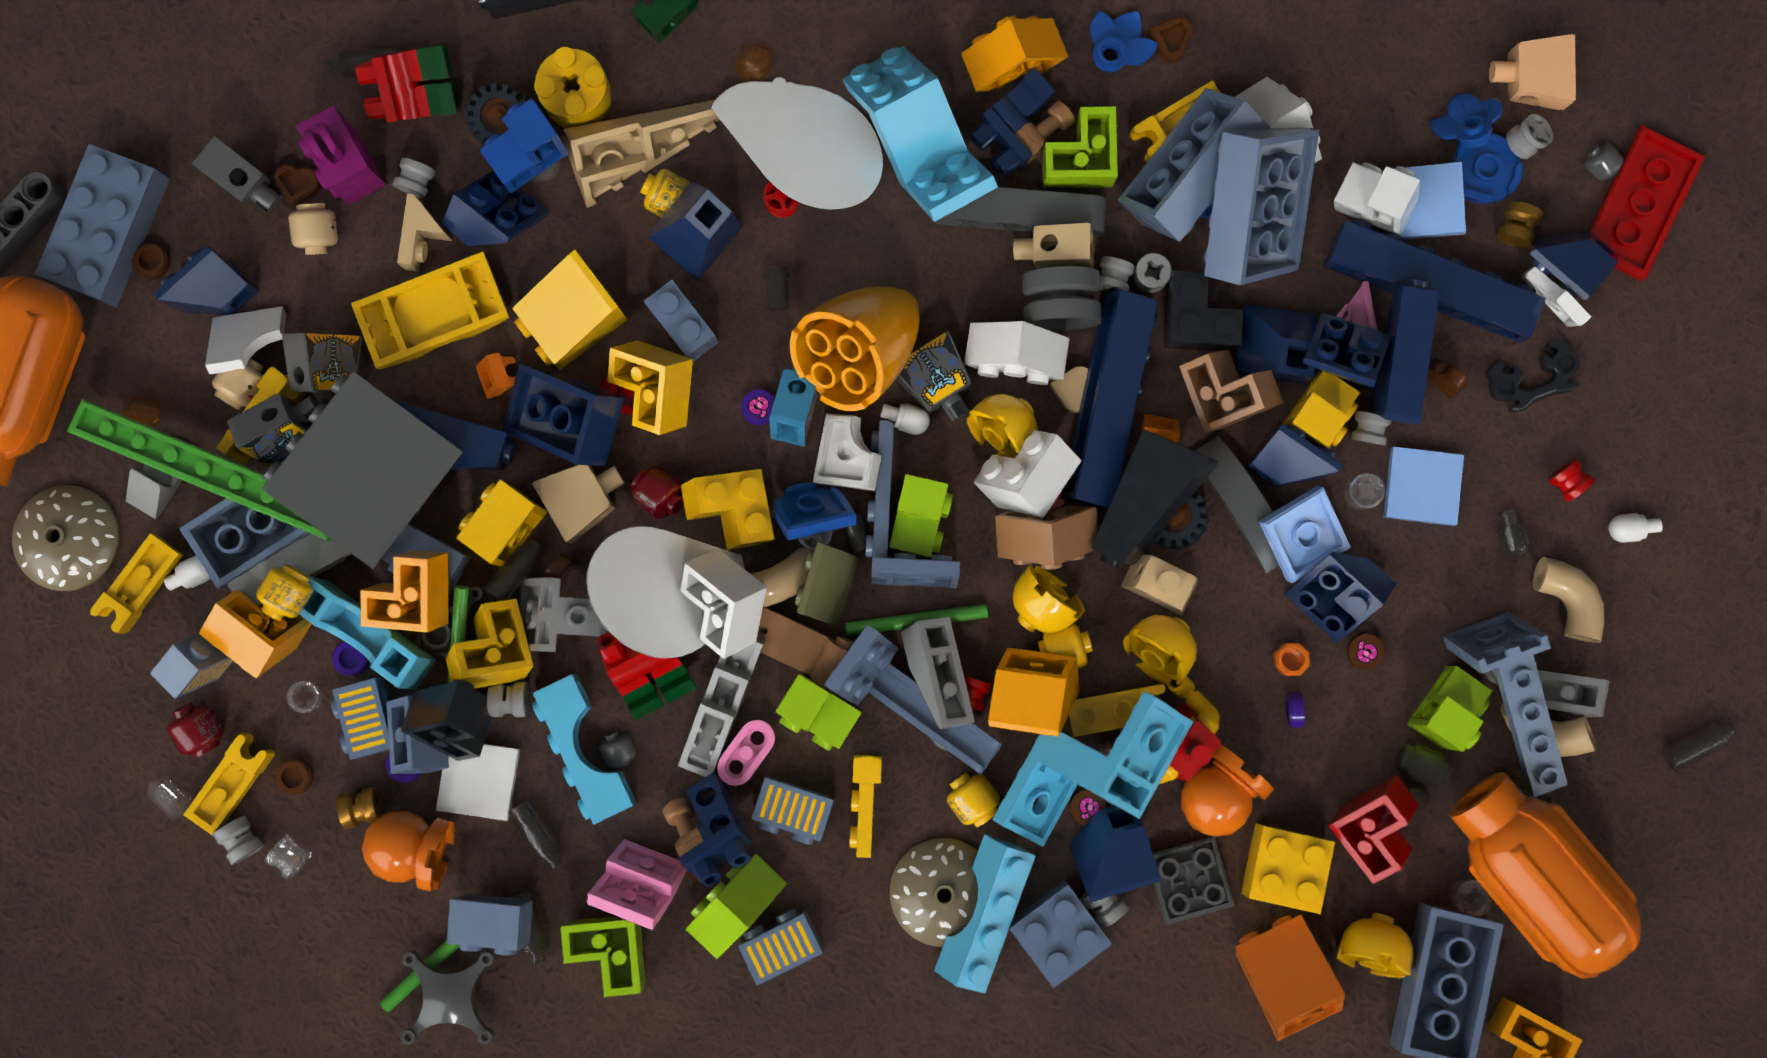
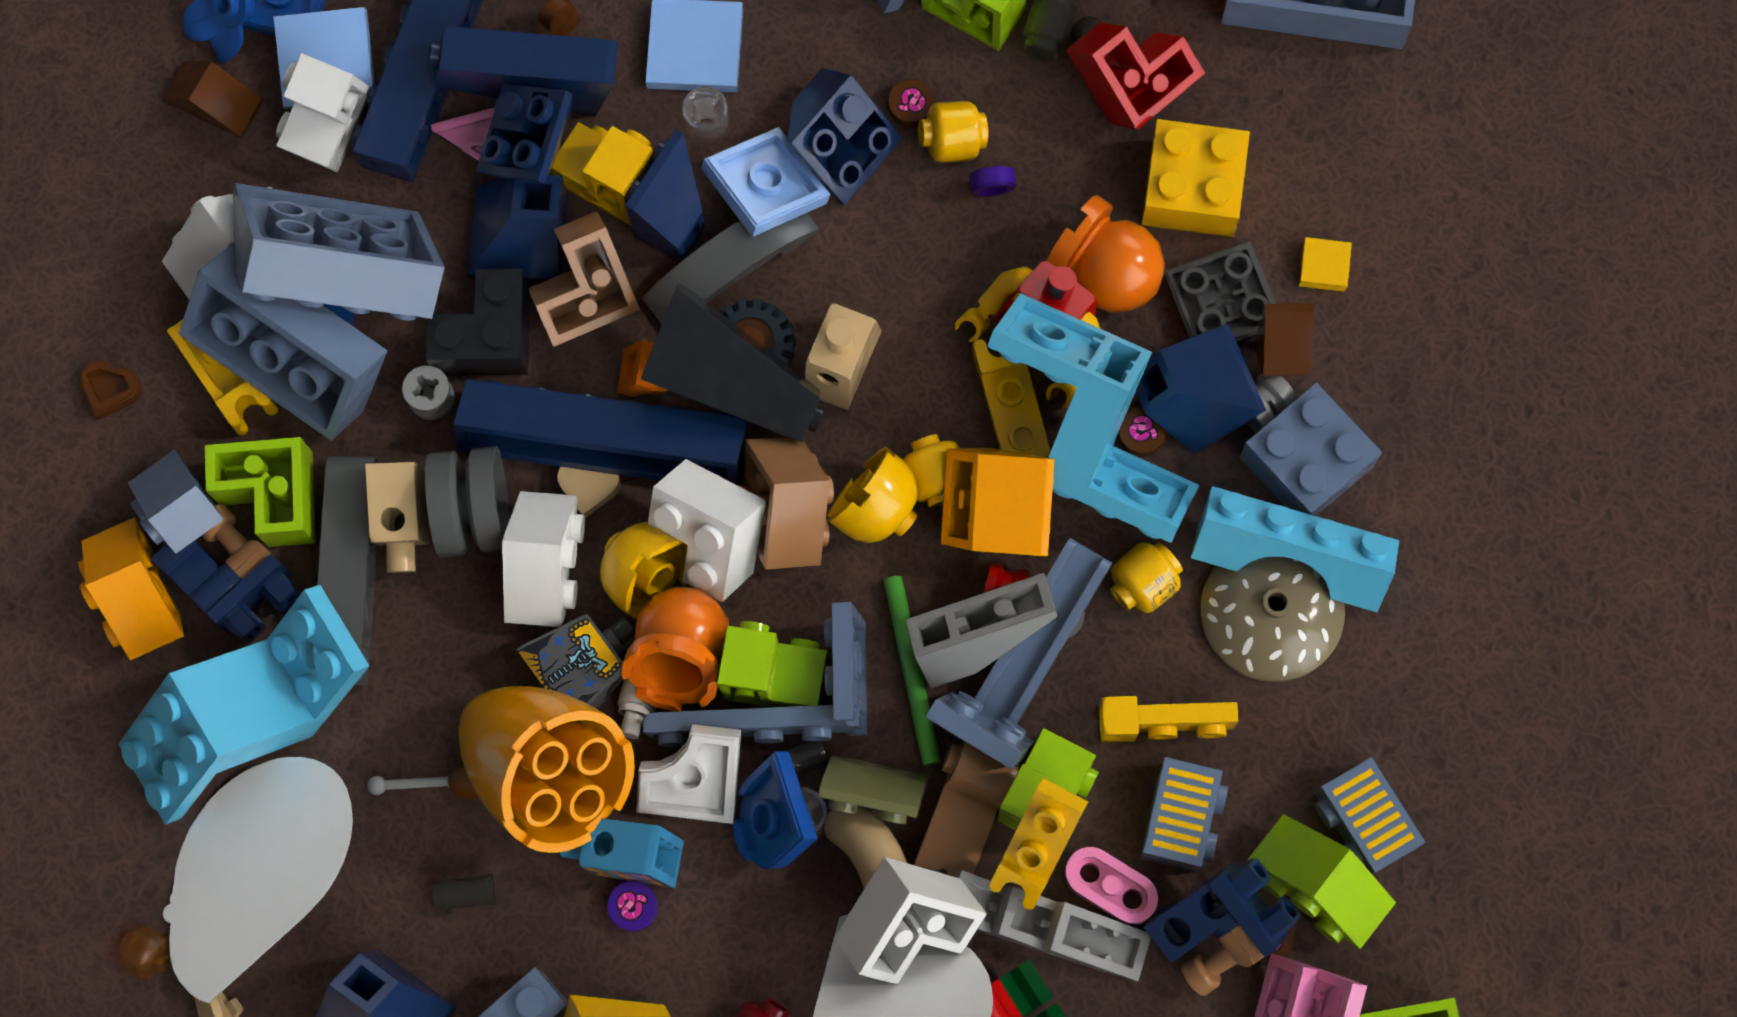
camera: 90 degrees left, 10 degrees down
(738, 500) = (768, 918): yellow brick -> none
(771, 700) = (1039, 841): none -> yellow plate
(778, 210) = (329, 905): red wheel -> none
(859, 229) = (456, 781): none -> hinge
(940, 448) = (677, 649): none -> orange tile
(1075, 84) = (173, 503): none -> sand blue brick
(1115, 274) = (430, 437): light grey wheel -> none
(1122, 38) = (109, 451): blue plate -> none
(1146, 923) = (1285, 339): none -> reddish brown slope
(1163, 646) = (926, 346): yellow cylinder -> none
(1213, 962) = (1325, 264): none -> yellow tile
(1289, 976) = (1331, 167): orange slope -> none
(1291, 659) = (928, 190): orange tile -> none
(1338, 682) = (953, 131): none -> yellow head
(1370, 428) = (623, 109): light grey wheel -> none
(1377, 946) = (1282, 65): yellow cylinder -> none
(1400, 116) = (213, 97): none -> reddish brown slope

